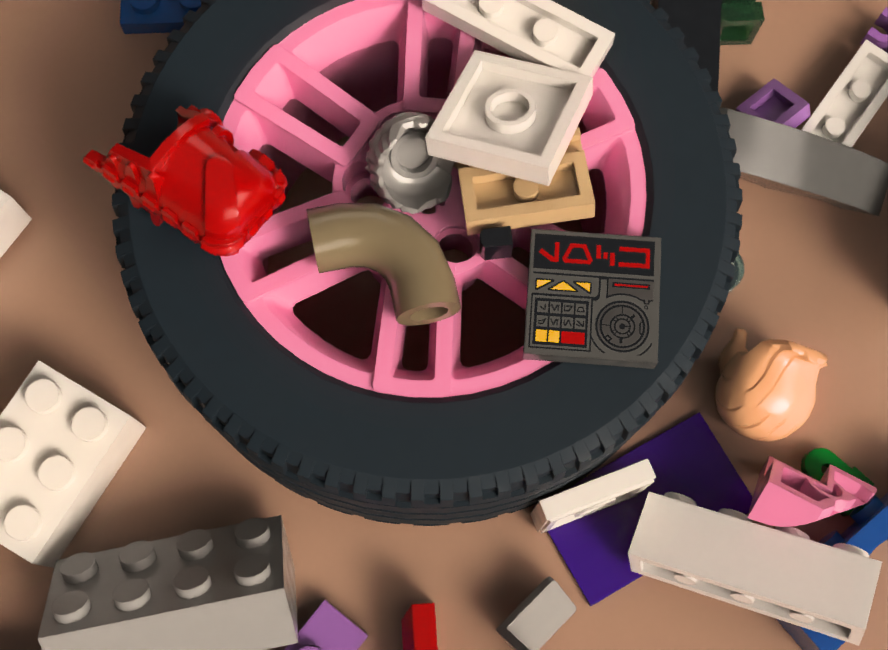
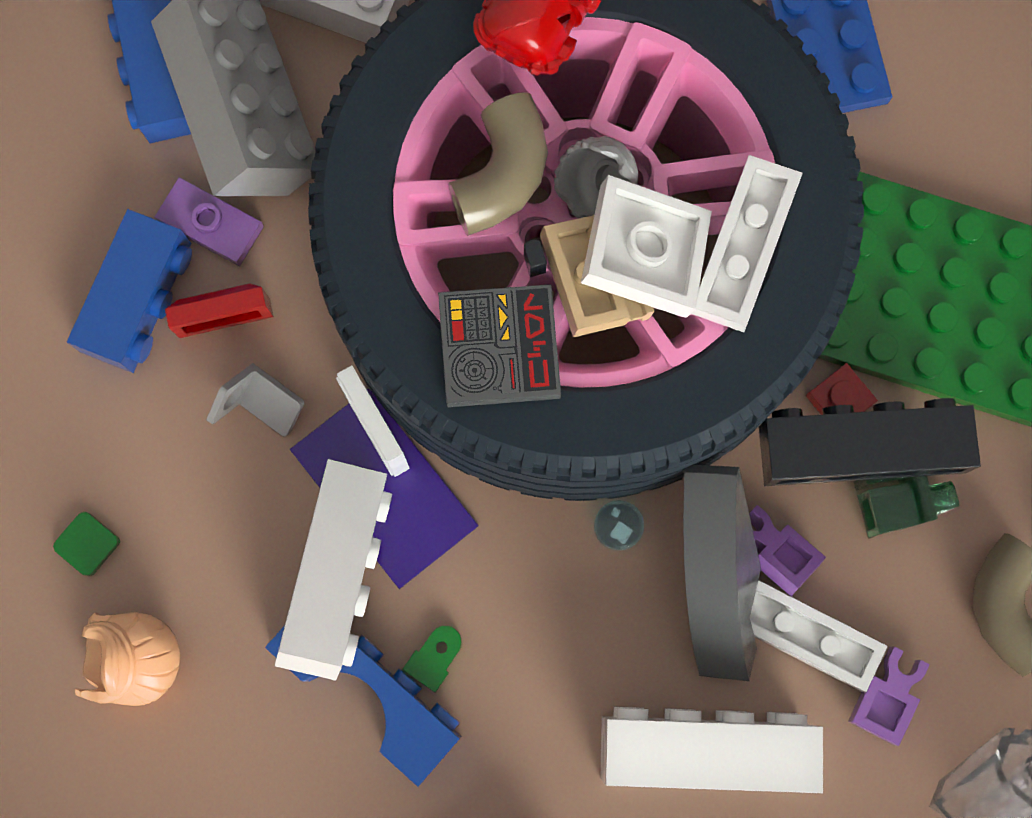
camera: 85 degrees right, 5 degrees up
(766, 389) = (498, 573): light nougat hair -> none
(793, 499) = (407, 613): bright pink slope -> none

